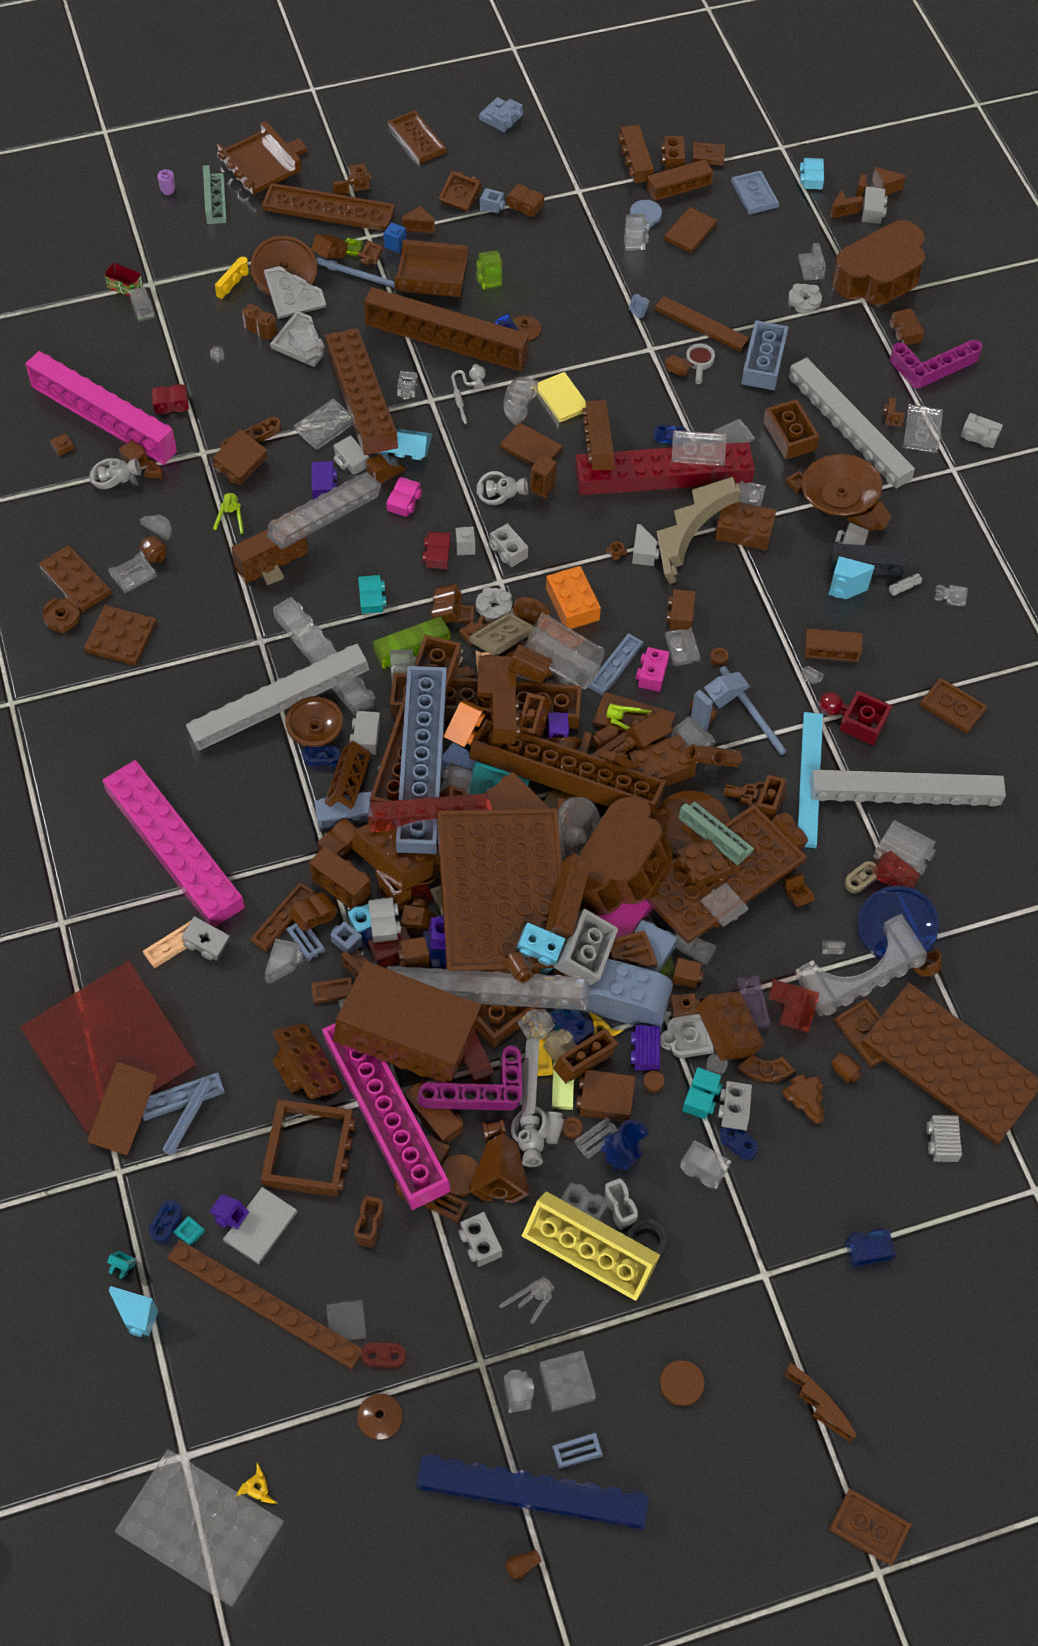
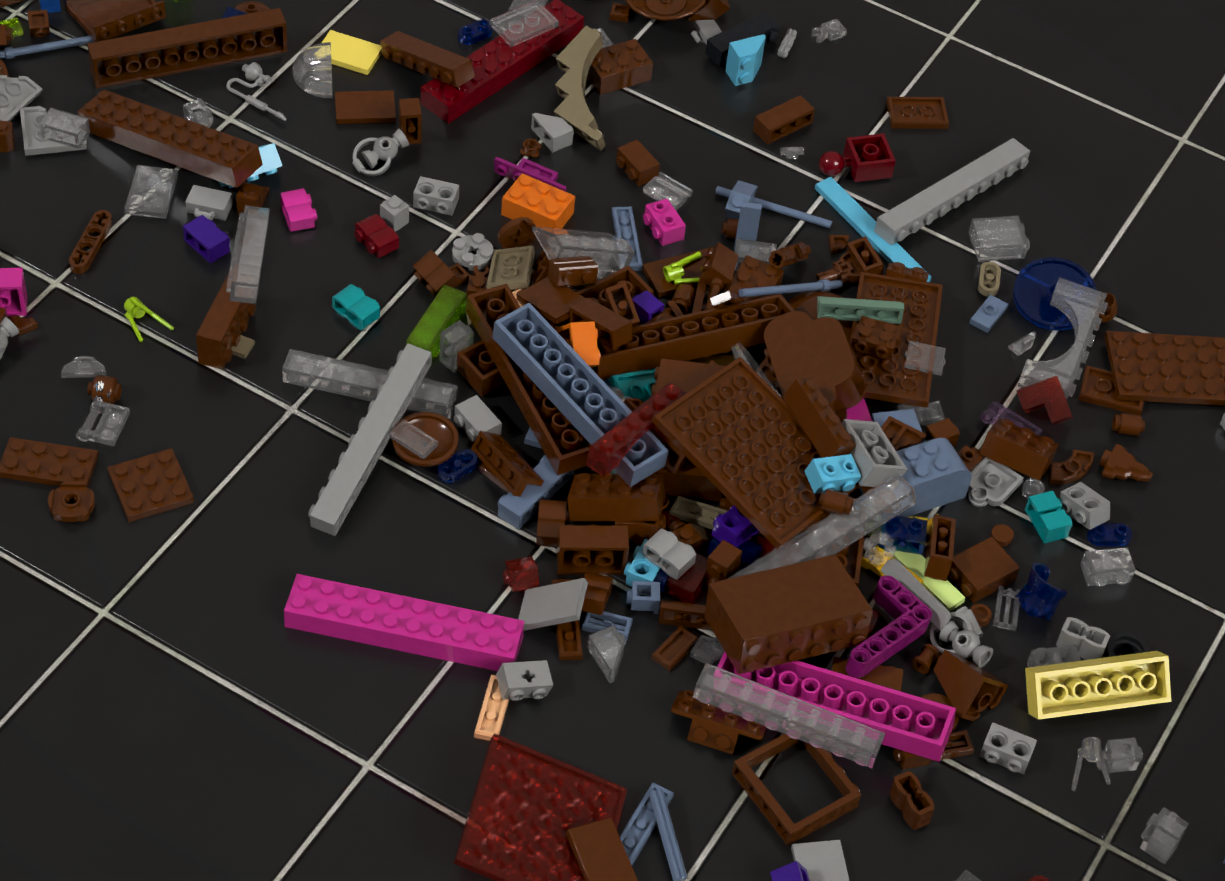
camera: 45 degrees left, 10 degrees down
(239, 458) = (105, 262): reddish brown brick -> none
(274, 899) = (553, 604): none -> light grey tile
(281, 863) = (521, 574): none -> clear red brick
(303, 716) = (413, 439): none -> clear tile
(341, 1097) = (788, 715): none -> clear brick
(558, 1043) = (913, 552): dark tan brick -> none
(559, 1310) = (1122, 755): none -> clear brick
(567, 1381) = (1189, 797): clear brick -> none
(594, 571) = (528, 168): none -> magenta bracket
(647, 1048) = (972, 512): dark purple brick -> none
(719, 656) = (703, 182): reddish brown tile -> none
(720, 796) = (822, 285): none -> sand blue bar
(773, 769) = (837, 243): none -> reddish brown tile
(797, 890) = (956, 320): reddish brown bracket -> none
(833, 904) = (988, 313): none -> sand blue plate
(895, 871) = (1011, 255): clear red brick -> none

